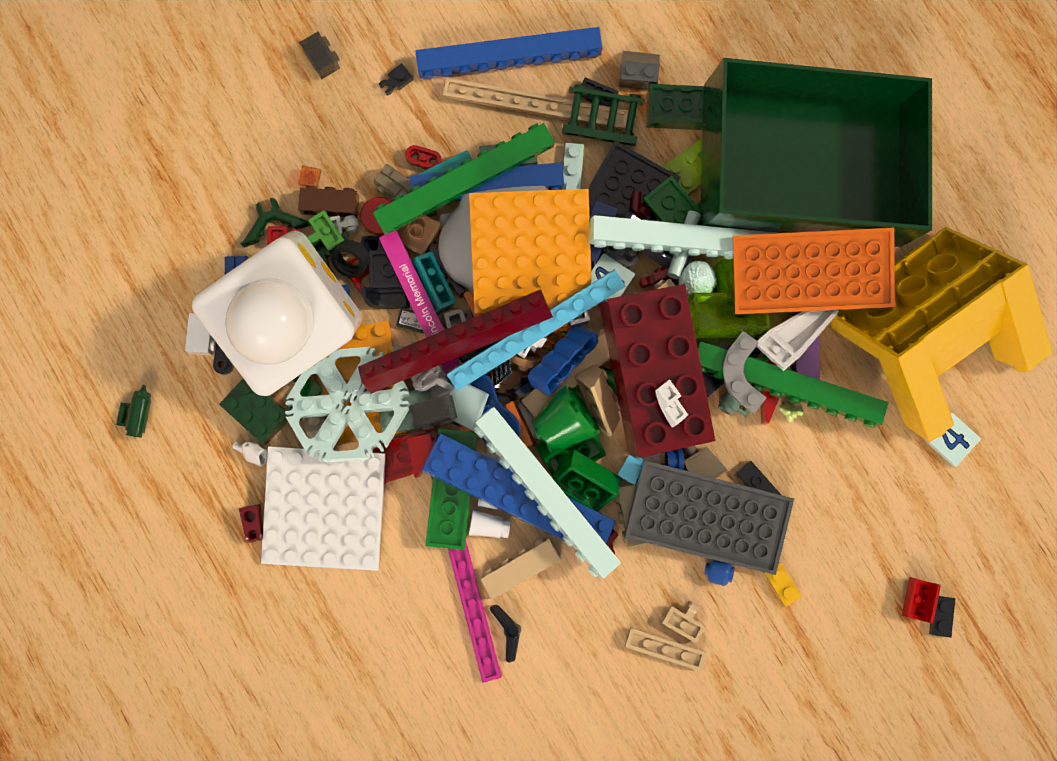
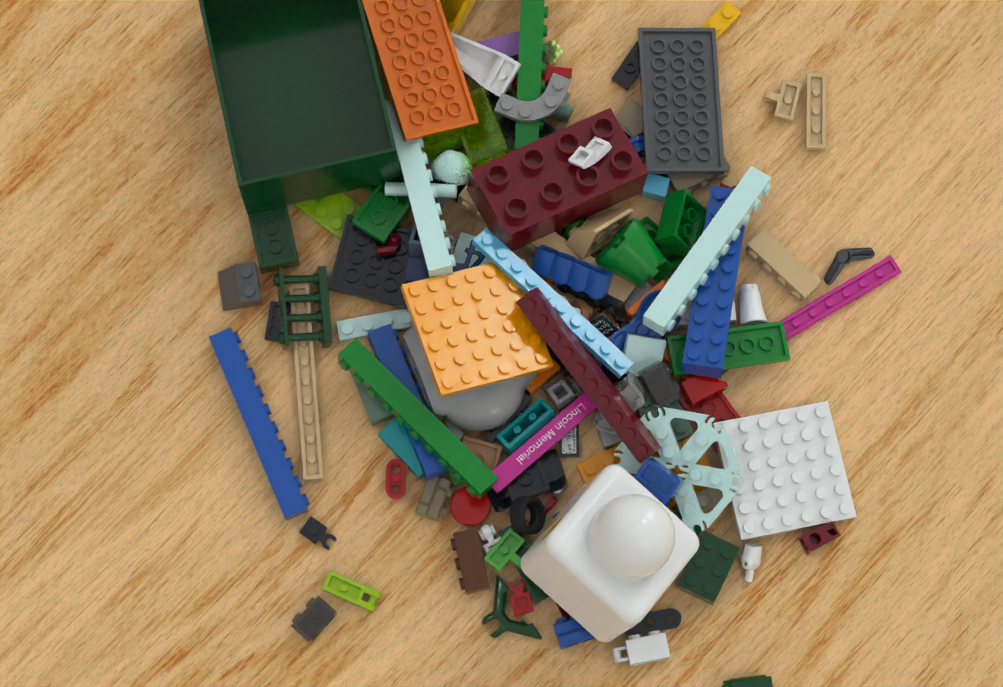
camera: 105 degrees left, 5 degrees down
(309, 176) = (449, 590): clear orange plate -> none
(334, 376) = (659, 480): none -> blue piece
(335, 93) = (350, 591): none -> lime plate
(660, 273) = (453, 209): red plate -> none
(719, 572) = (729, 80): blue head -> none

